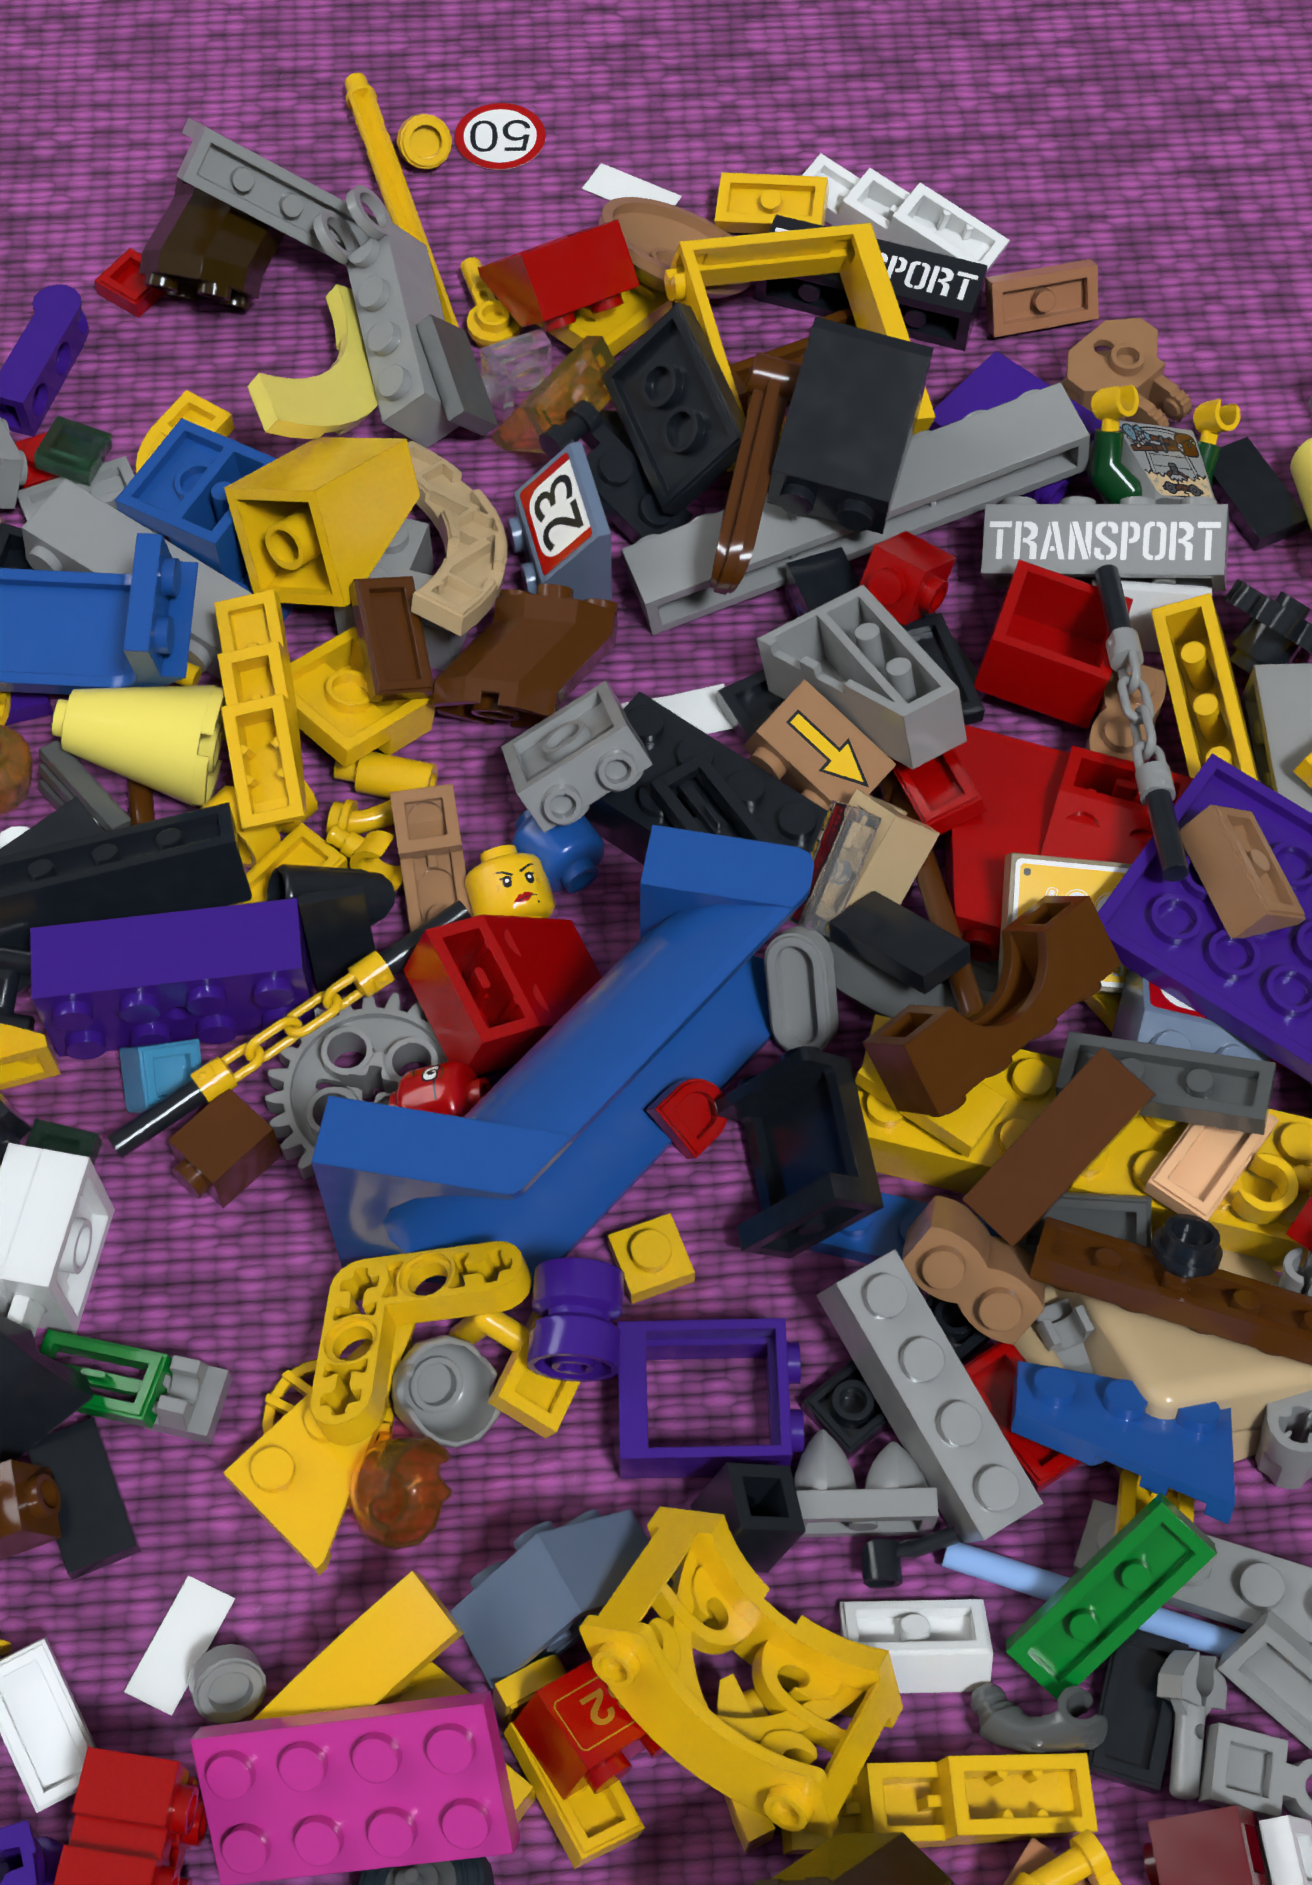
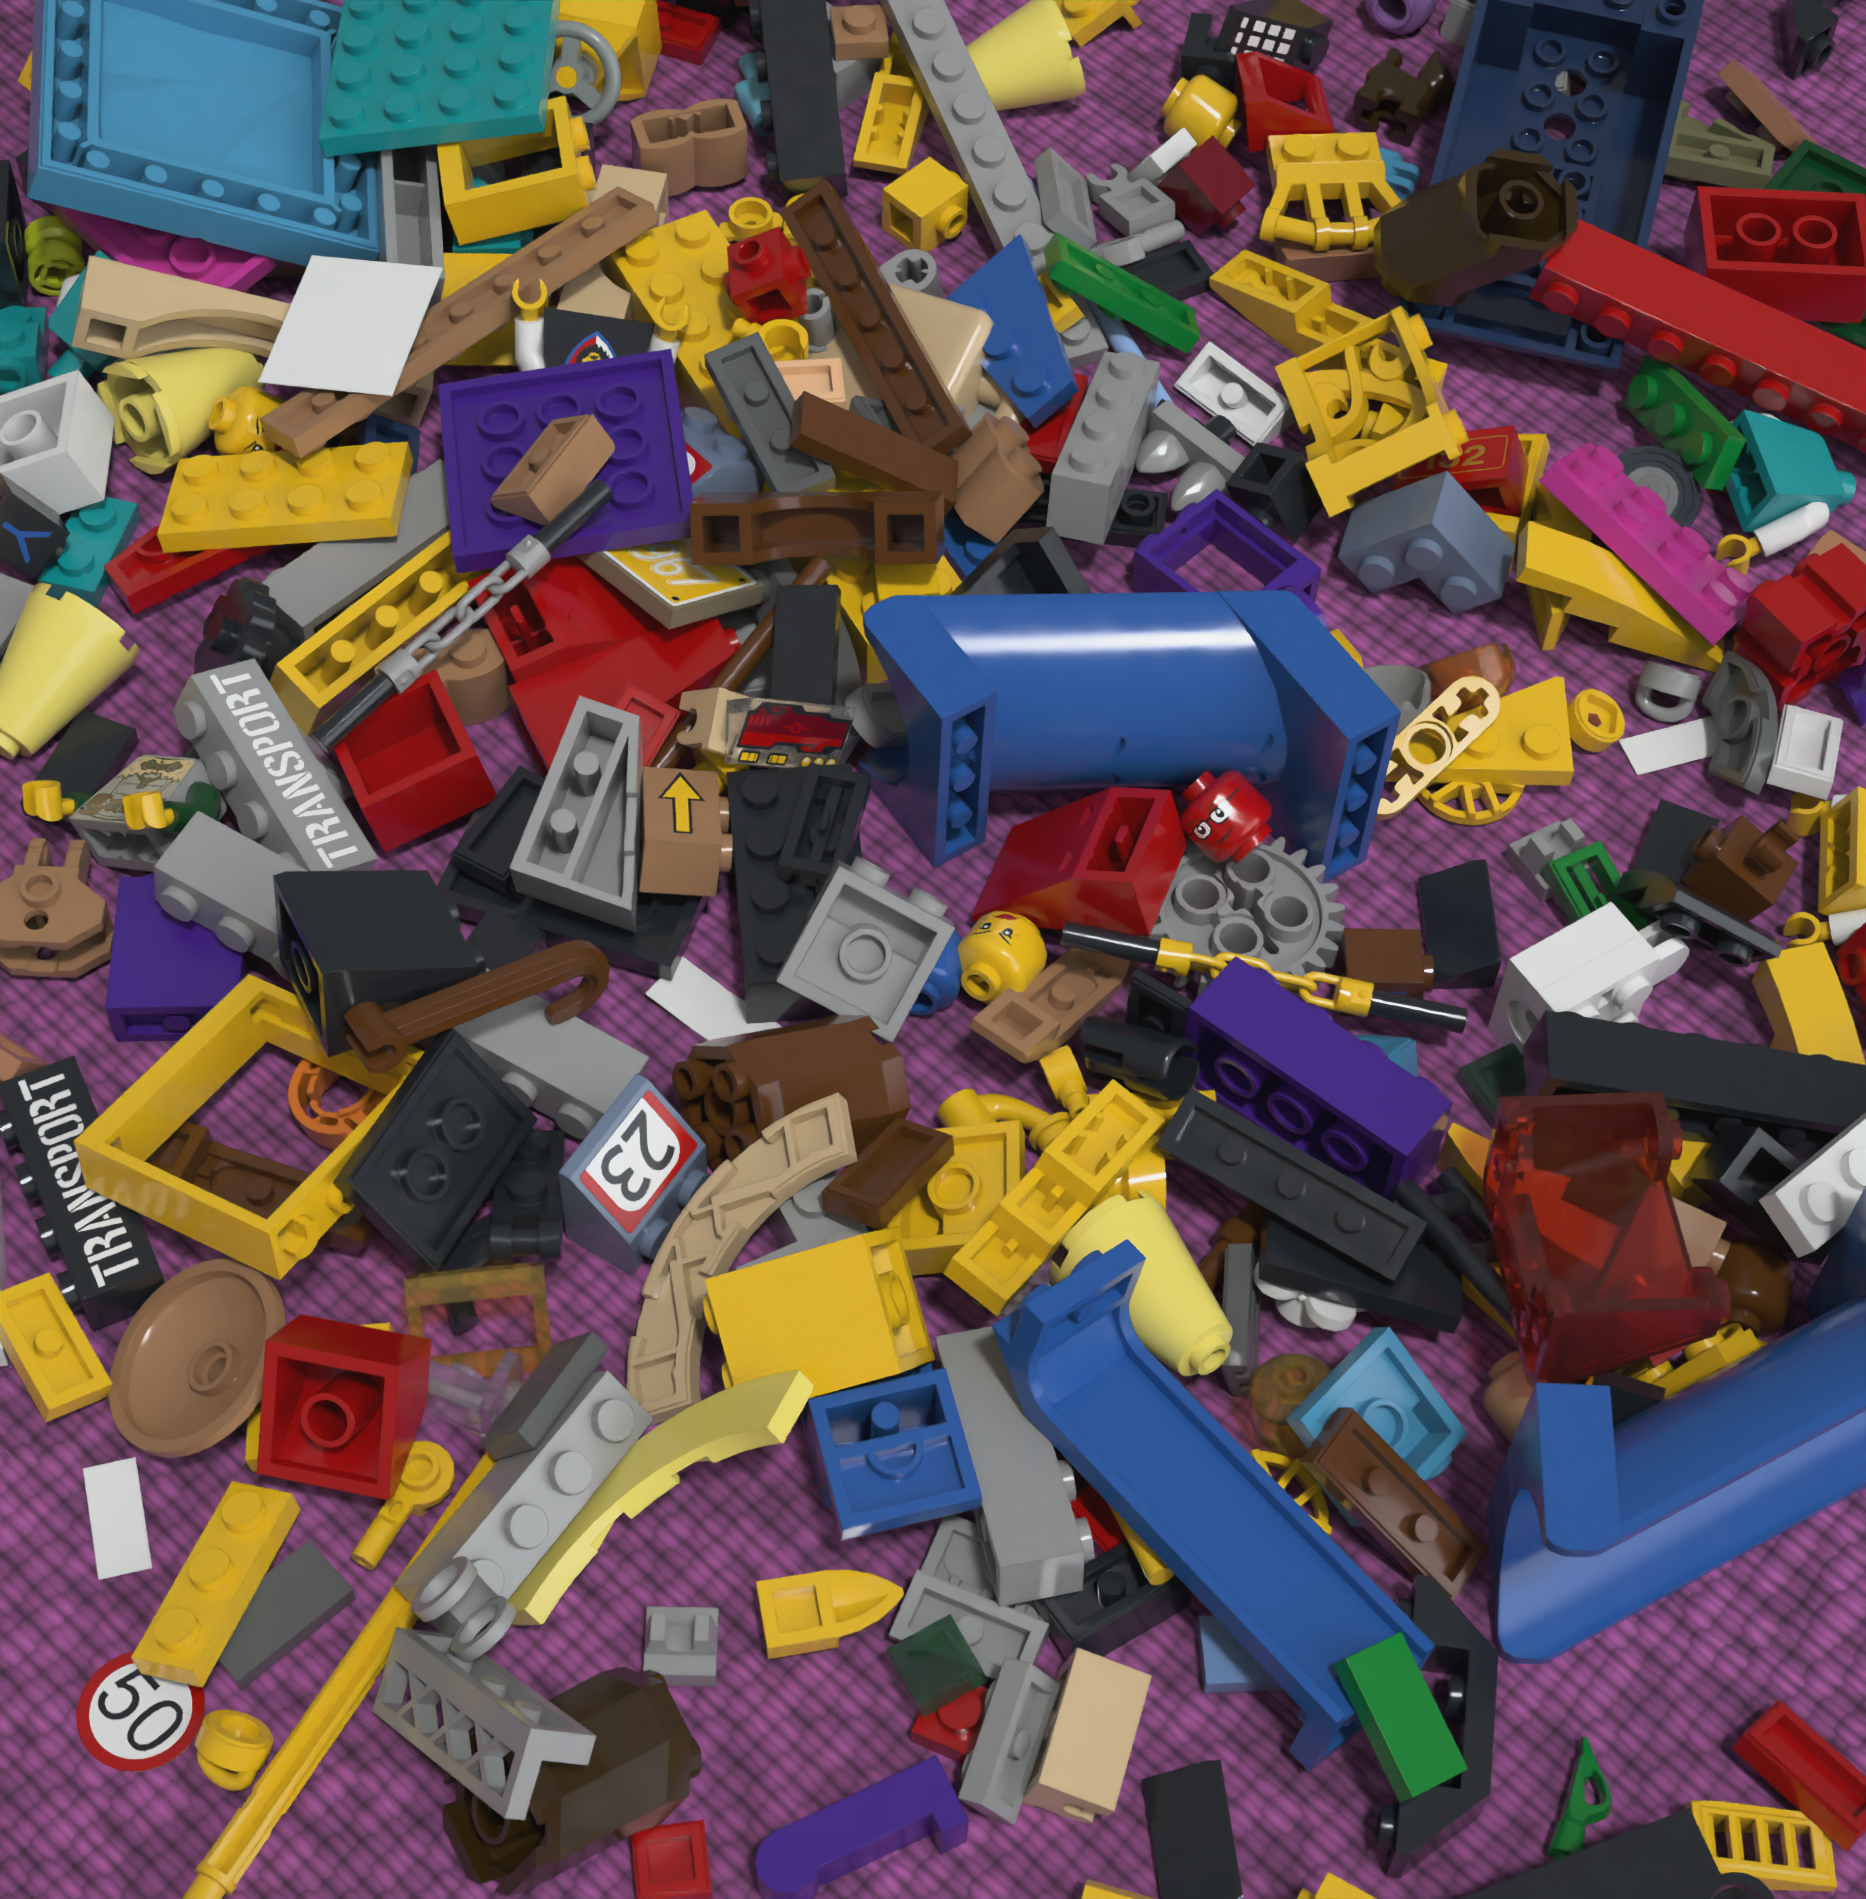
camera: 135 degrees left, 5 degrees down
(116, 1688) = (1744, 723): none -> dark grey tile
(206, 1260) = (1460, 926): none -> black slope
(241, 363) = (682, 1644): none -> light grey tile
(264, 1576) = (1594, 720): none -> yellow tile
(484, 213) = (284, 1611): none -> dark grey tile
(523, 181) = (216, 1584): none -> yellow plate
(908, 576) = (462, 867): red brick -> none
(1057, 1732) = (1235, 317): dark grey piece -> none
(1187, 1246) = (868, 359): black plate -> none

